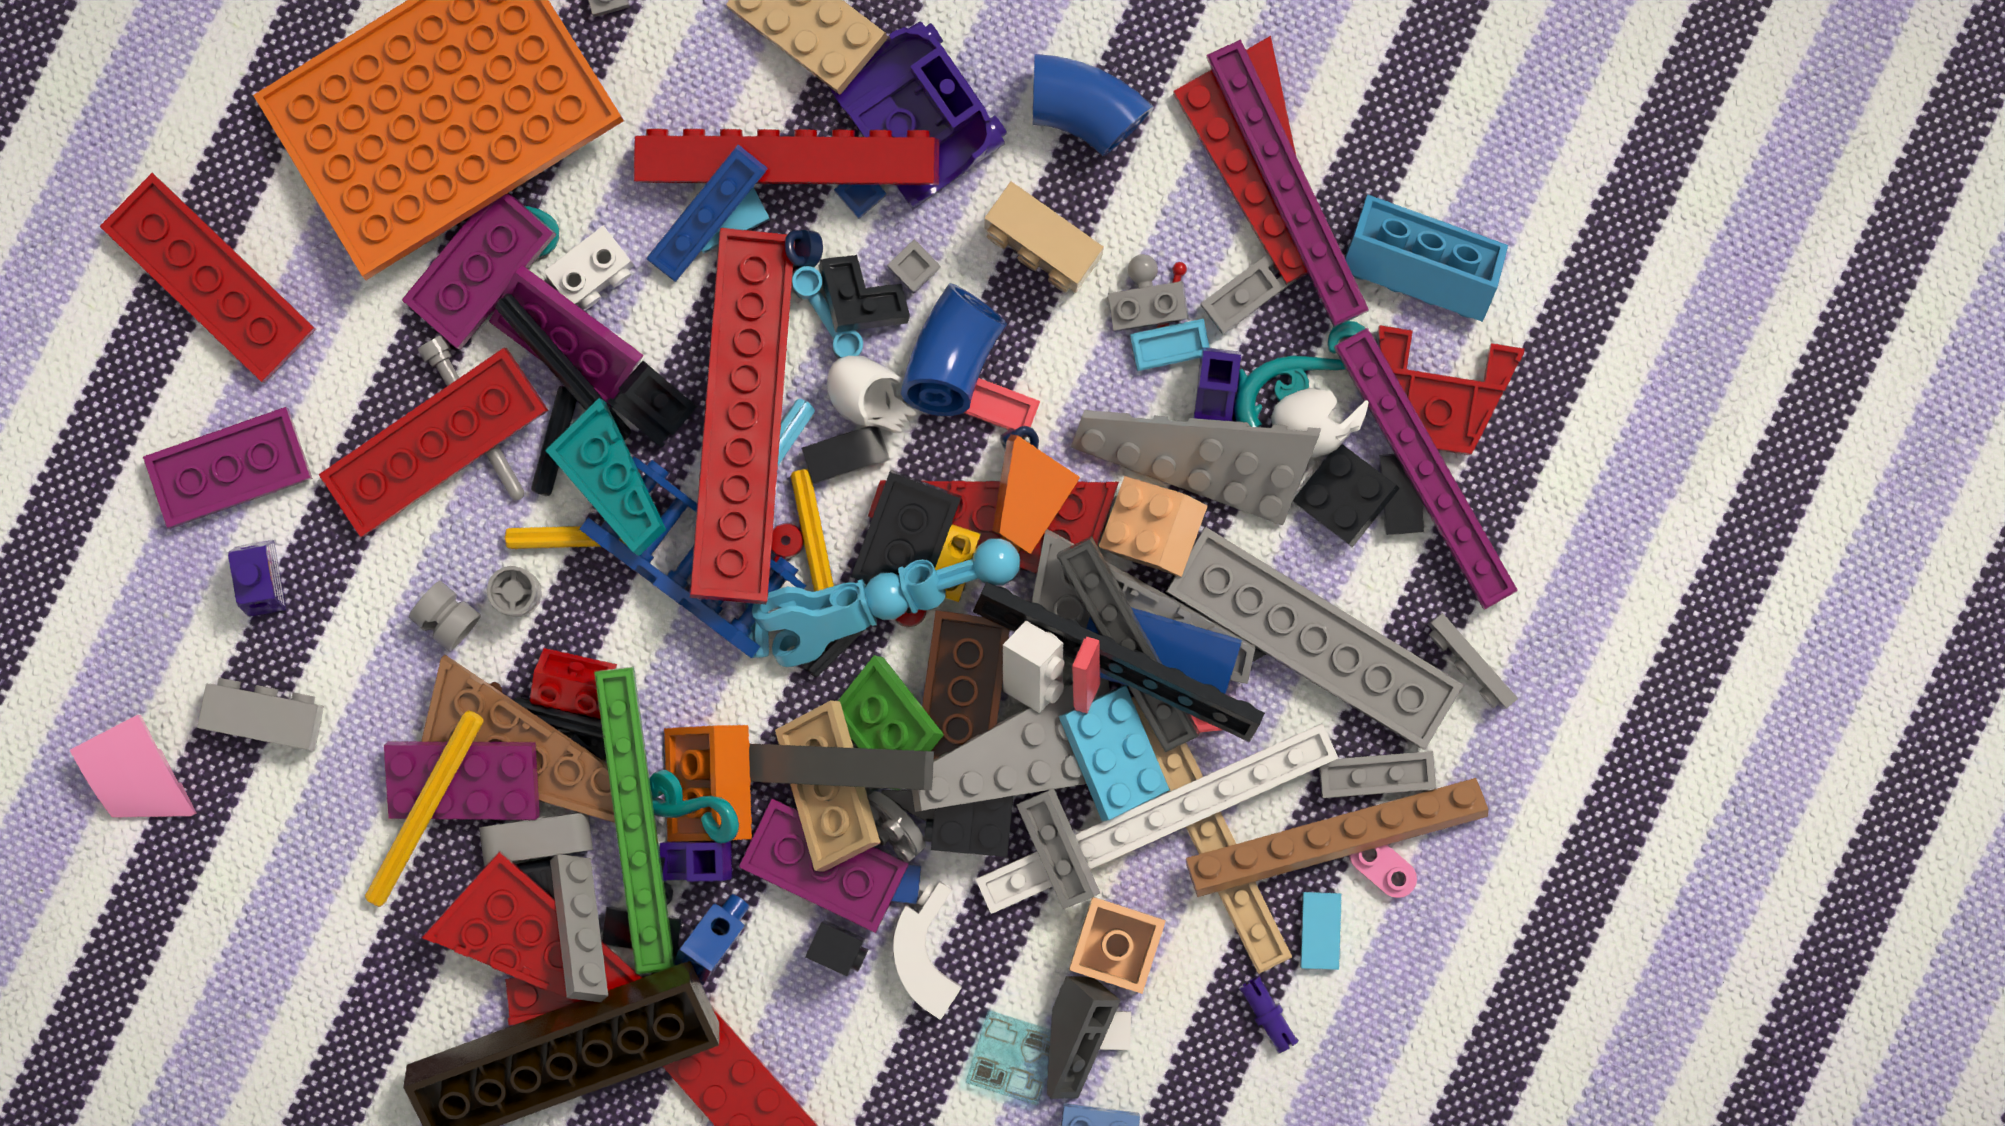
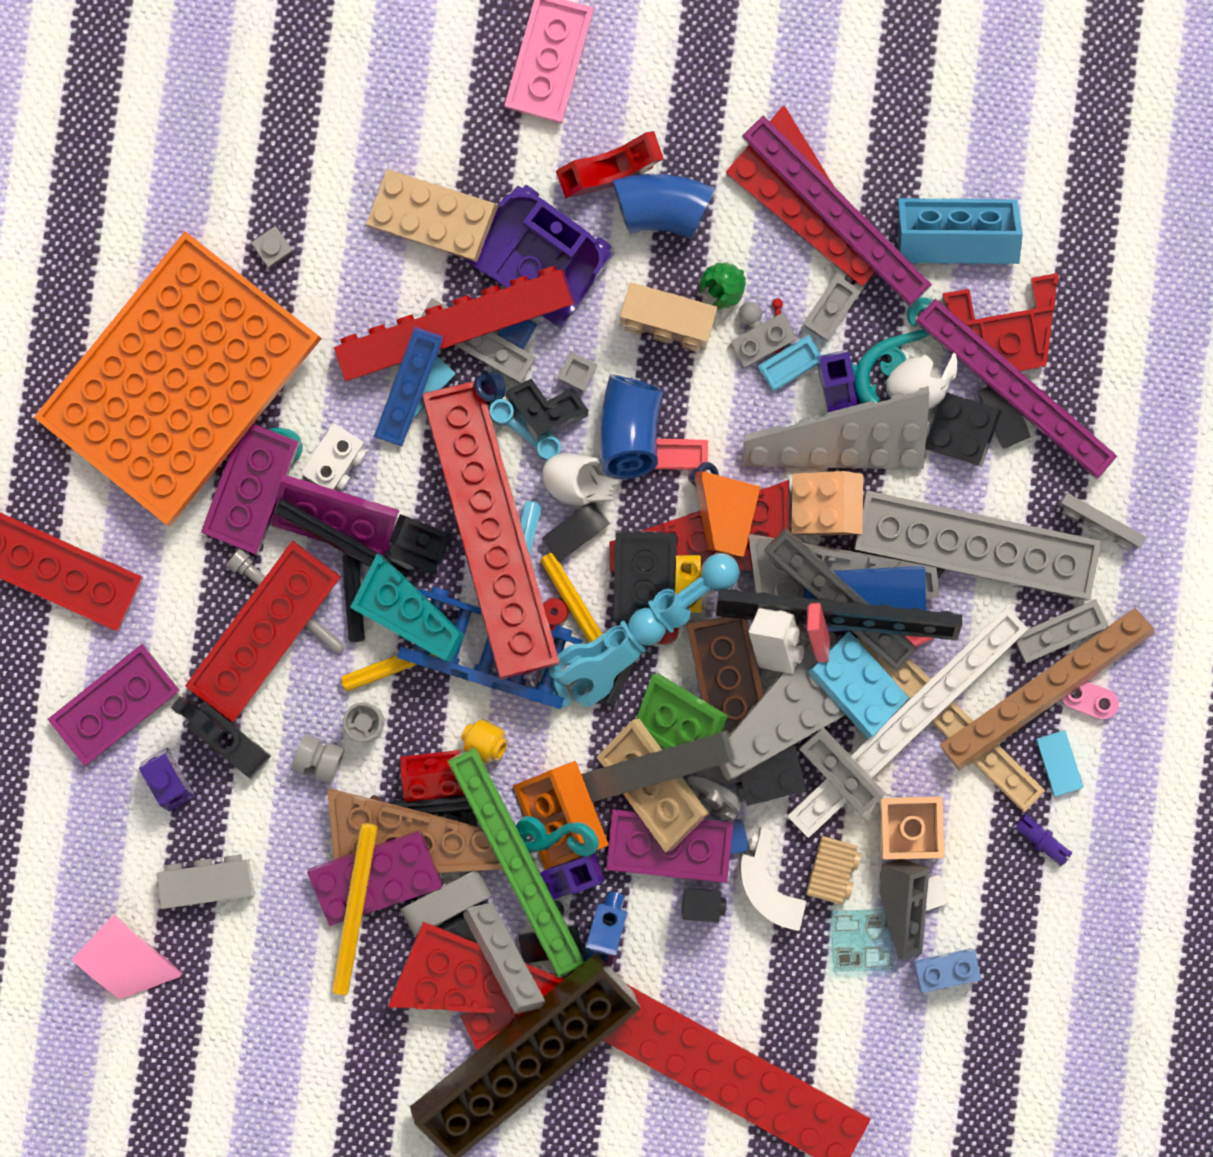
camera: 15 degrees left, 0 degrees up
(330, 531) = (210, 727): none -> black piece
(652, 664) = (486, 738): none -> yellow head
(826, 210) = (495, 352): none -> light grey plate
(1006, 962) = (832, 870): none -> tan brick
(1020, 38) = (598, 171): none -> red arch
(1125, 222) = (725, 283): none -> green piece

